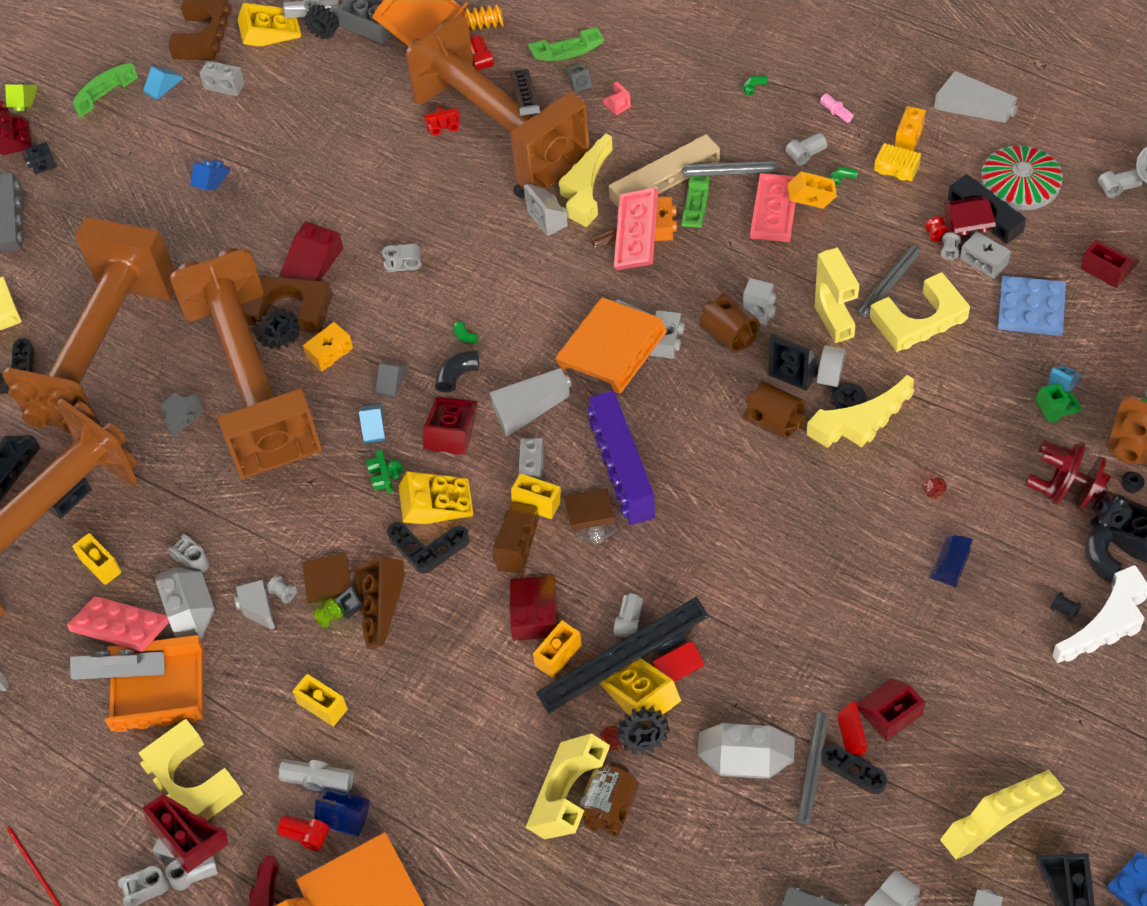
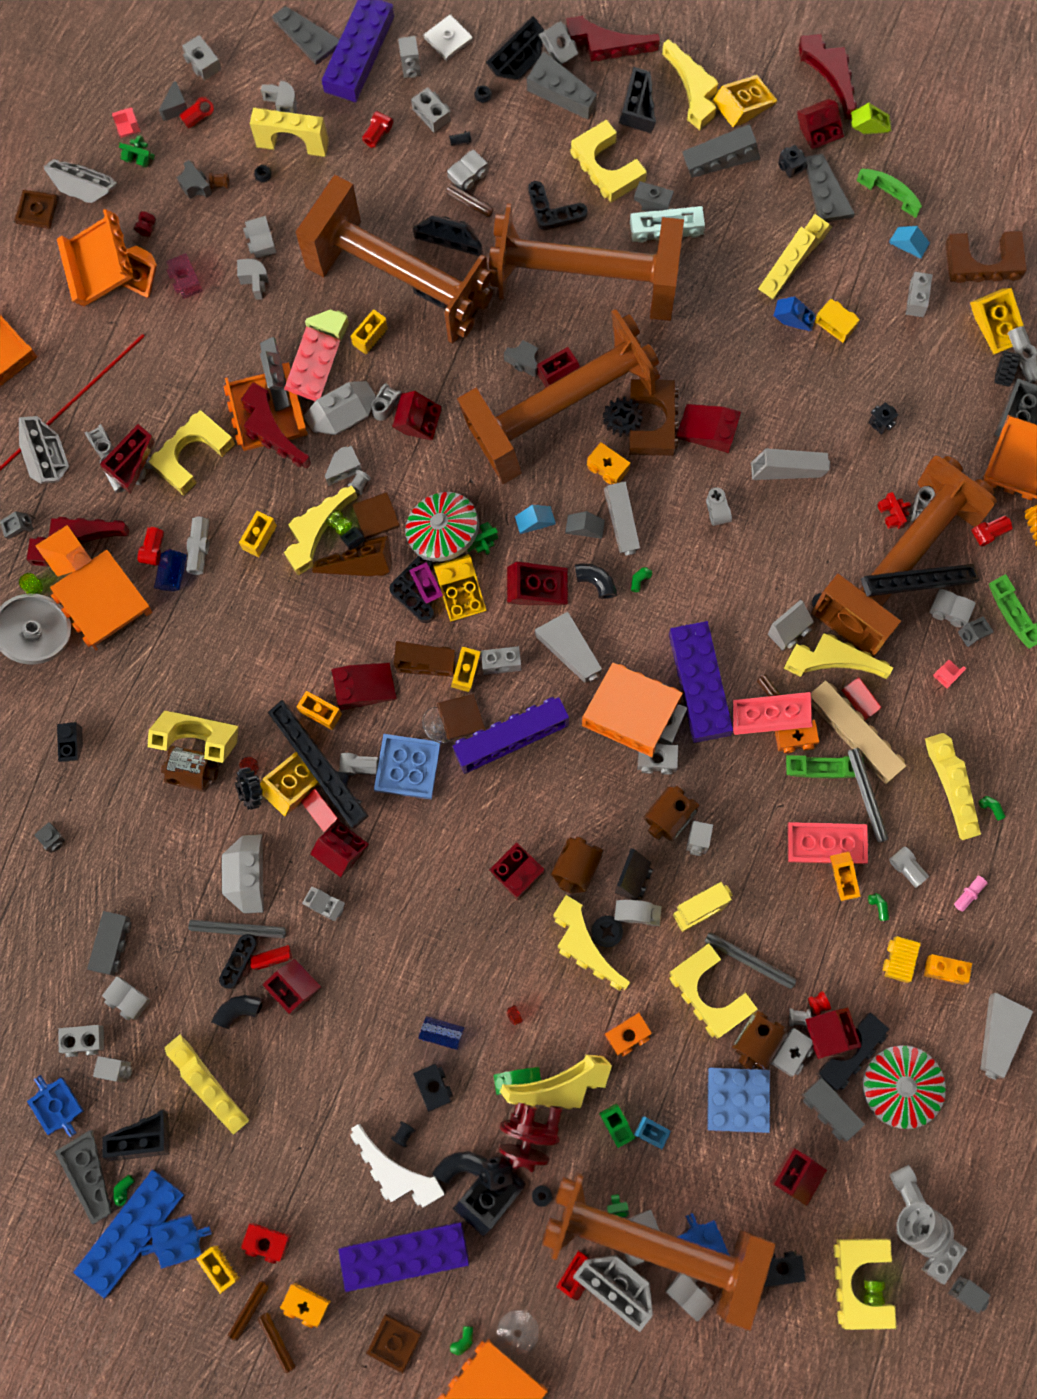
camera: 80 degrees right, 20 degrees up
(35, 275) = (653, 197): none -> dark grey brick
(66, 293) = (641, 229): none -> light aqua brick
(69, 601) = (329, 322): none -> yellowish green slope
(87, 139) = (826, 192): none -> dark grey wing
(141, 158) = (796, 252): none -> light yellow arch
(187, 679) = (265, 429): none -> dark red arch
(211, 377) = (557, 366): none -> dark red slope
(216, 522) = (417, 415): none -> dark red slope
(228, 142) = (837, 320): none -> yellow brick
(330, 647) = (310, 528): none -> light yellow arch
(344, 118) = (883, 418): none -> black brick
(360, 505) = (442, 526): none -> dish
(372, 195) = (789, 464): none -> light grey slope
(391, 337) = (622, 517): none -> light grey slope
(429, 524) = (426, 583): none -> magenta slope
(442, 97) = (920, 503): none -> light grey piece
(552, 87) = (952, 608): none -> light grey brick
(580, 288) = (700, 682): none -> dark purple brick
(627, 164) = (861, 698): none -> slope
(639, 567) = (407, 766): none -> medium blue plate
(723, 100) = (956, 784): none -> light yellow arch
(729, 644) = (339, 849): none -> dark red slope
(777, 466) = (517, 871): none -> dark red slope
(795, 663) = (323, 904): none -> light grey brick
(910, 771) = (237, 1007): none -> black cylinder
(961, 387) = (637, 1026): none -> orange brick
(975, 274) = (755, 1048): none -> reddish brown cylinder
(1004, 581) = (424, 1078): none -> black brick
(1009, 488) = (516, 1077): none -> green brick
(1017, 438) = (563, 1089): none -> light yellow arch
(1043, 229) = (832, 1110): none -> dark grey brick

